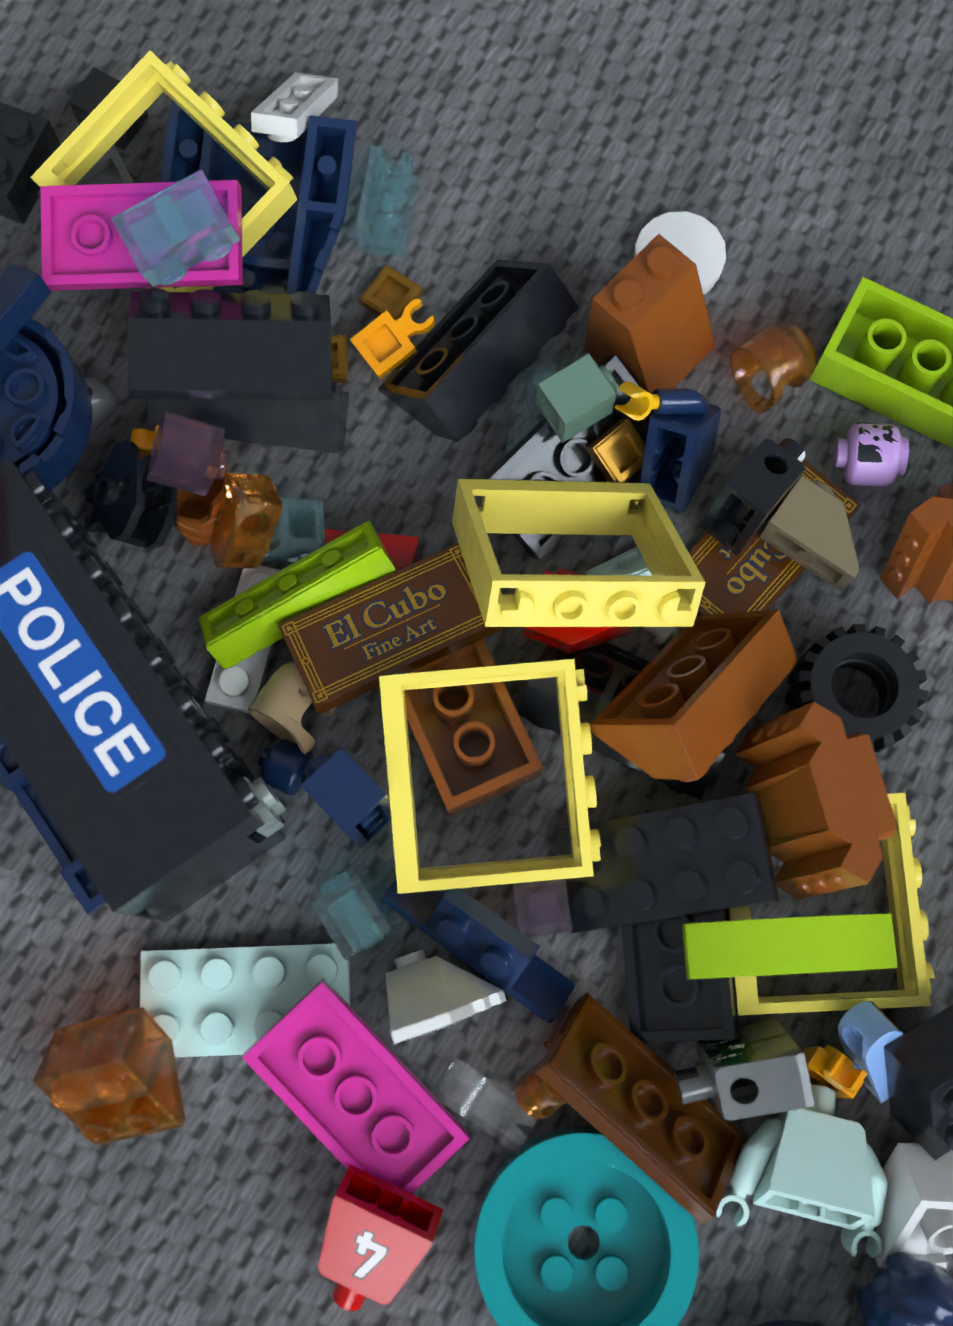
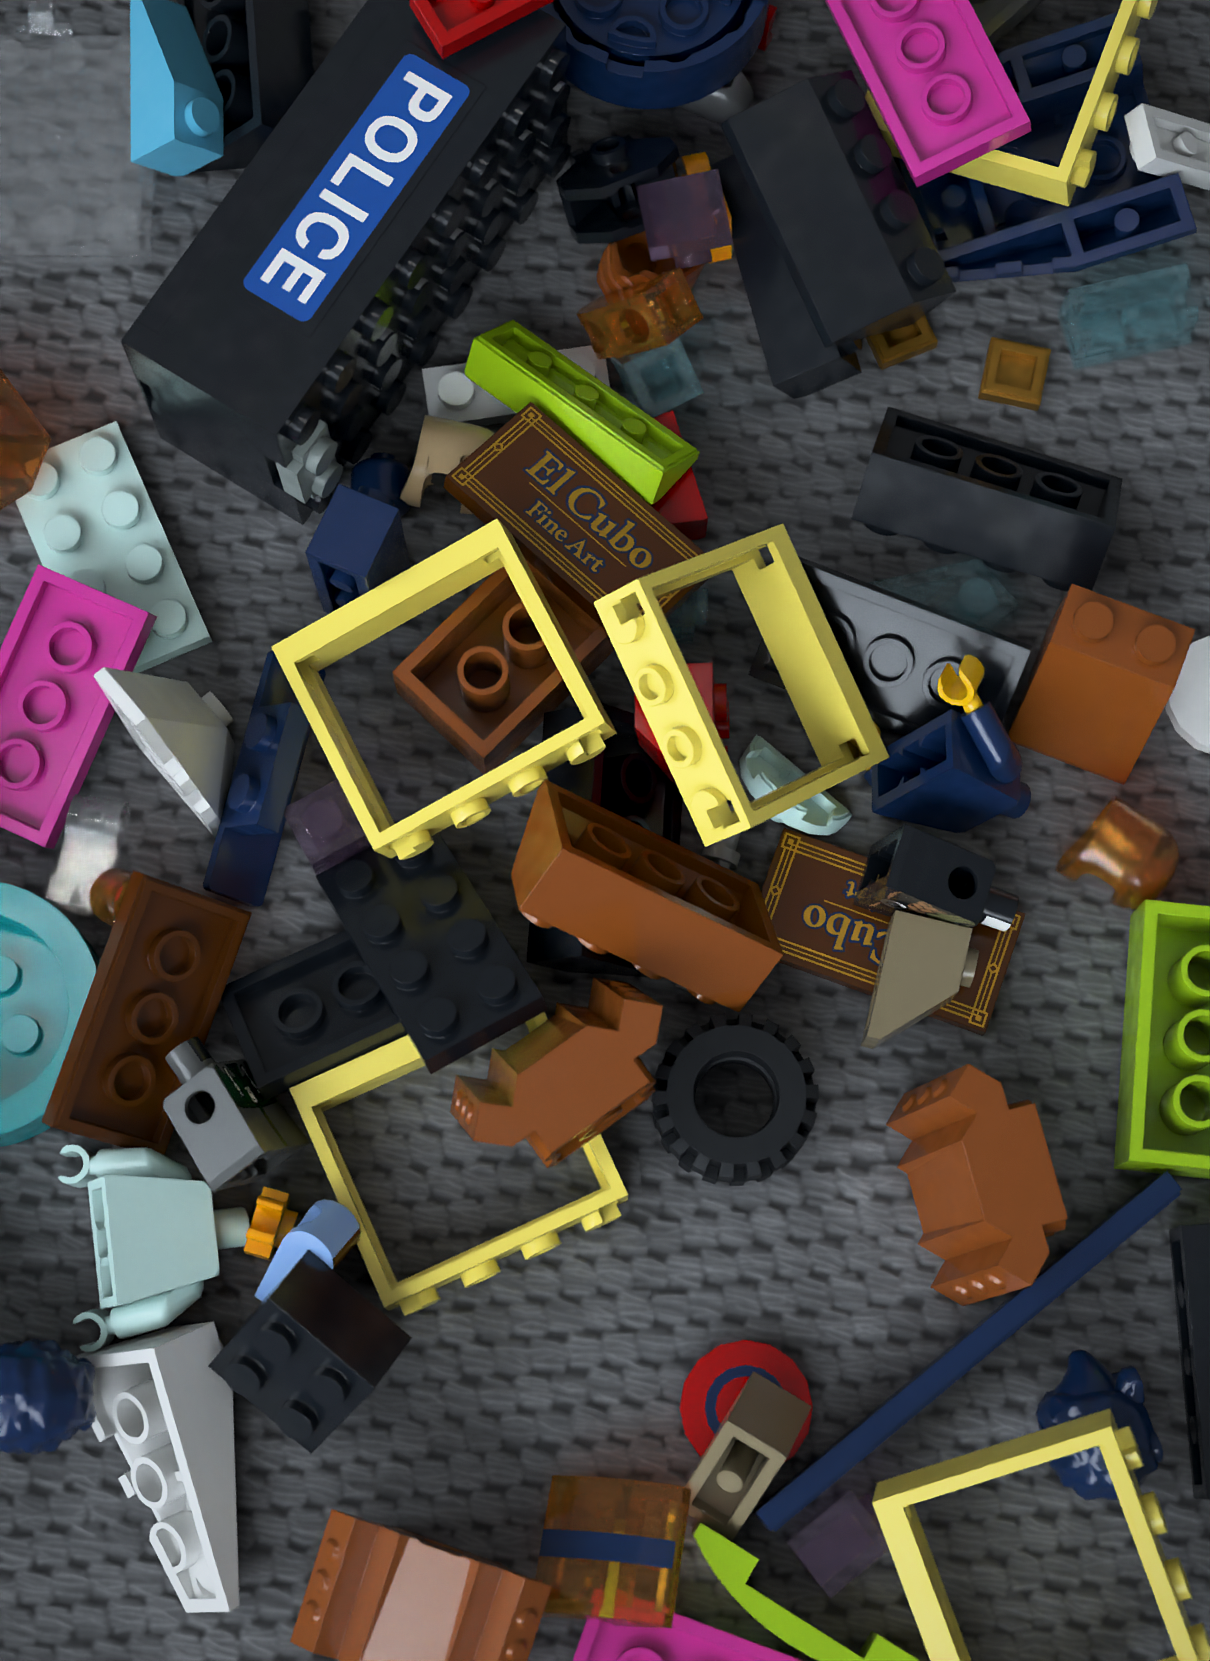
camera: 65 degrees right, 0 degrees up
(176, 230) = (931, 82): clear light blue brick -> none
(355, 914) = (236, 622): clear light blue brick -> none
(387, 342) = (948, 389): light orange plate -> none
(576, 397) = (945, 618): sand green brick -> none
(618, 452) = (911, 704): pearl gold tile -> none
(789, 946) = (388, 1116): lime slope -> none
(872, 454) = (1054, 1019): lavender head -> none

